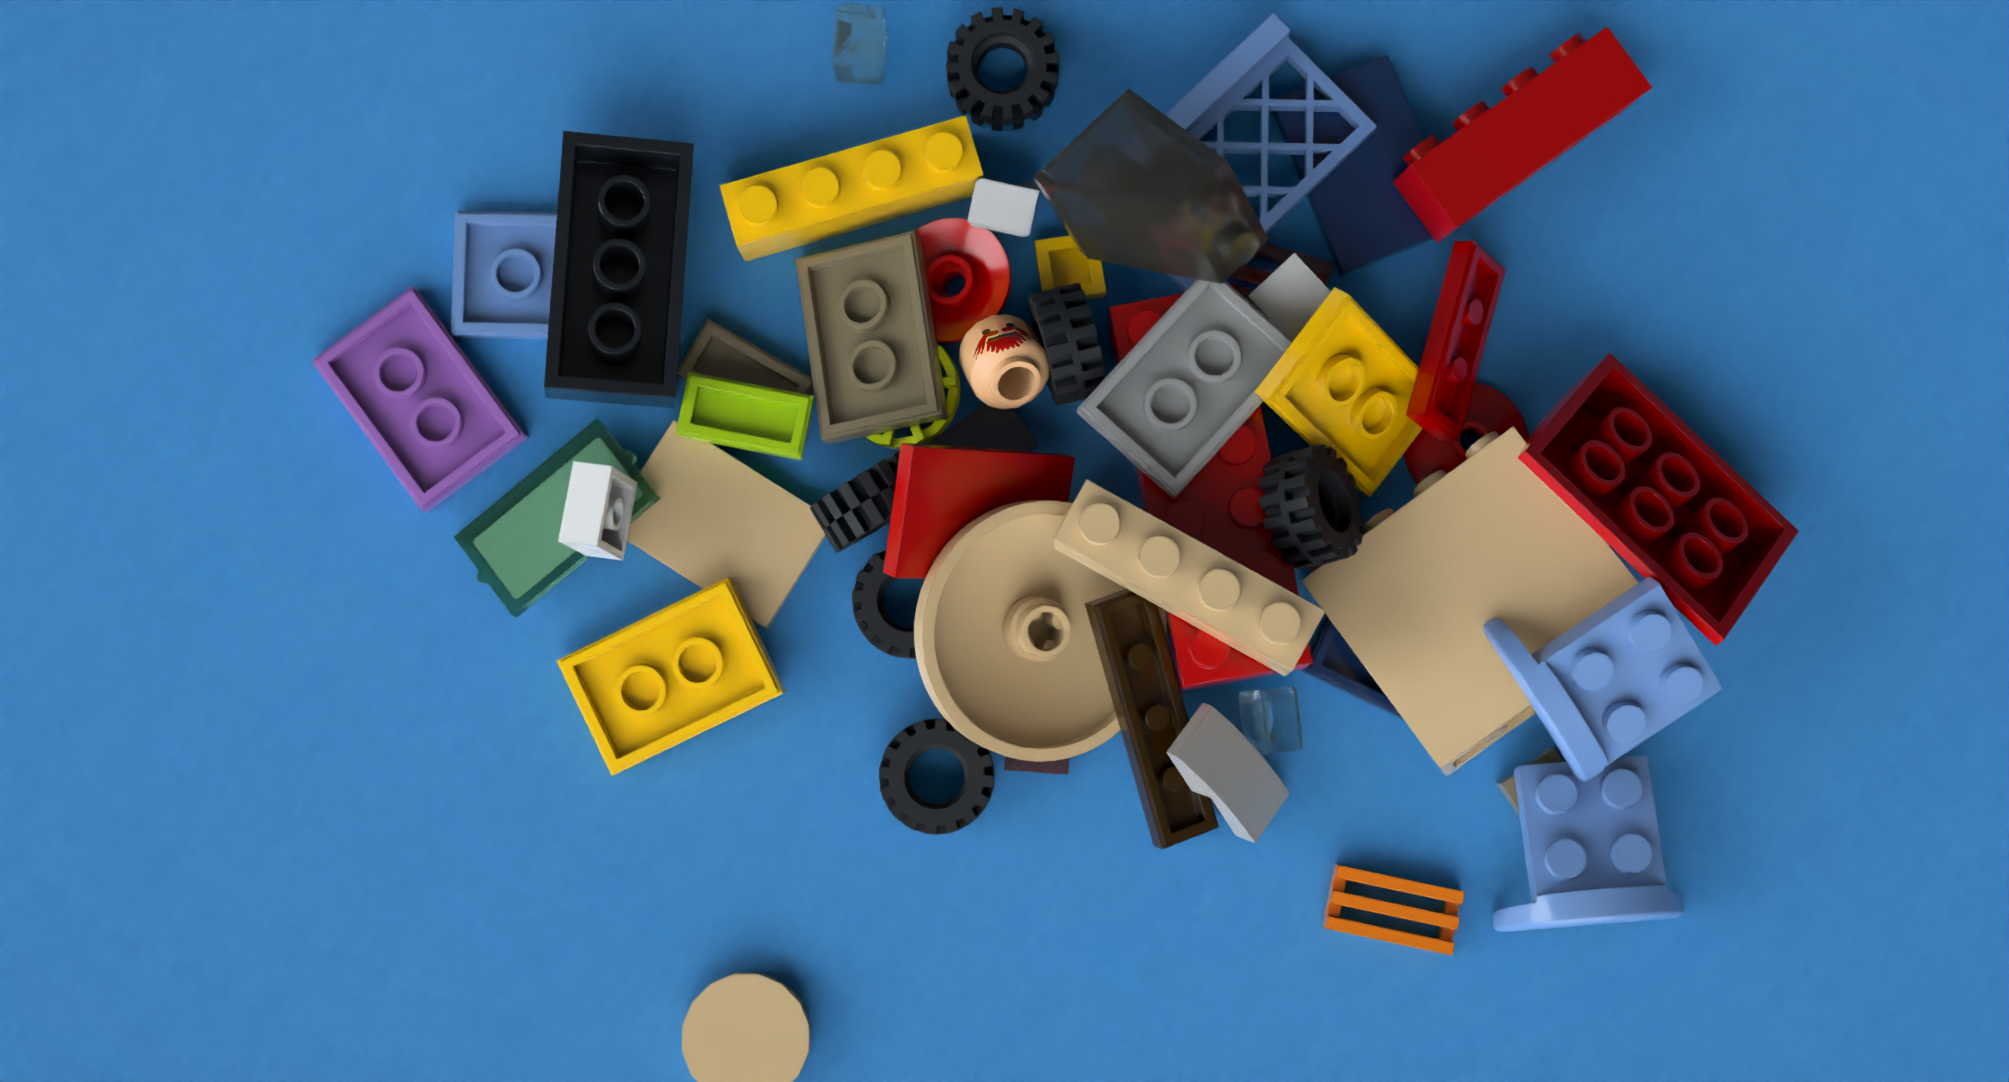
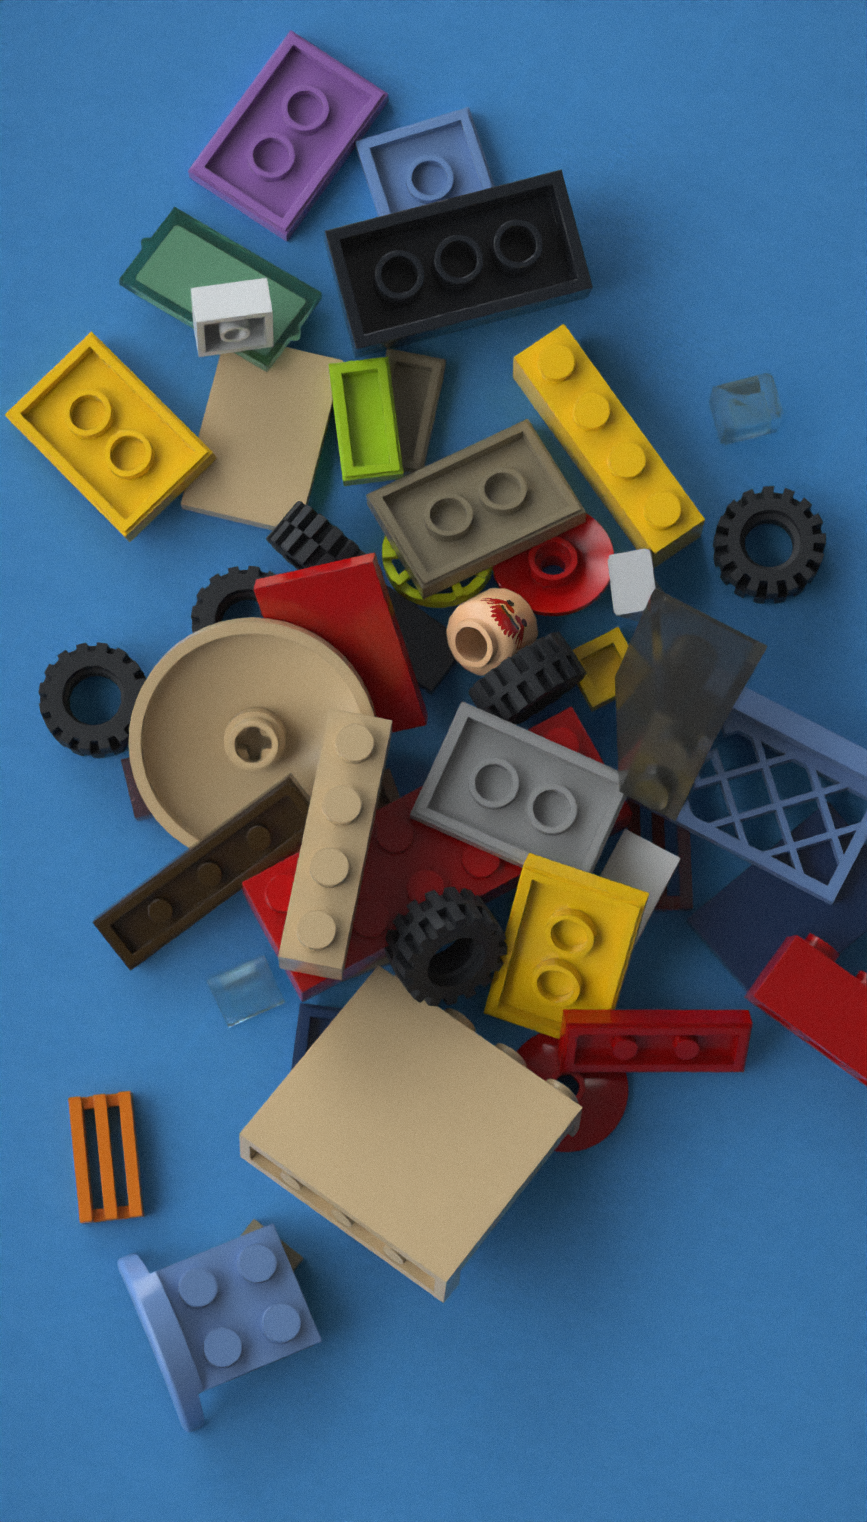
camera: 75 degrees right, 5 degrees down
(1230, 771) = (180, 957): light grey slope -> none
(1610, 677) = (368, 1256): medium blue piece -> none
(1659, 496) = (559, 1261): red slope -> none

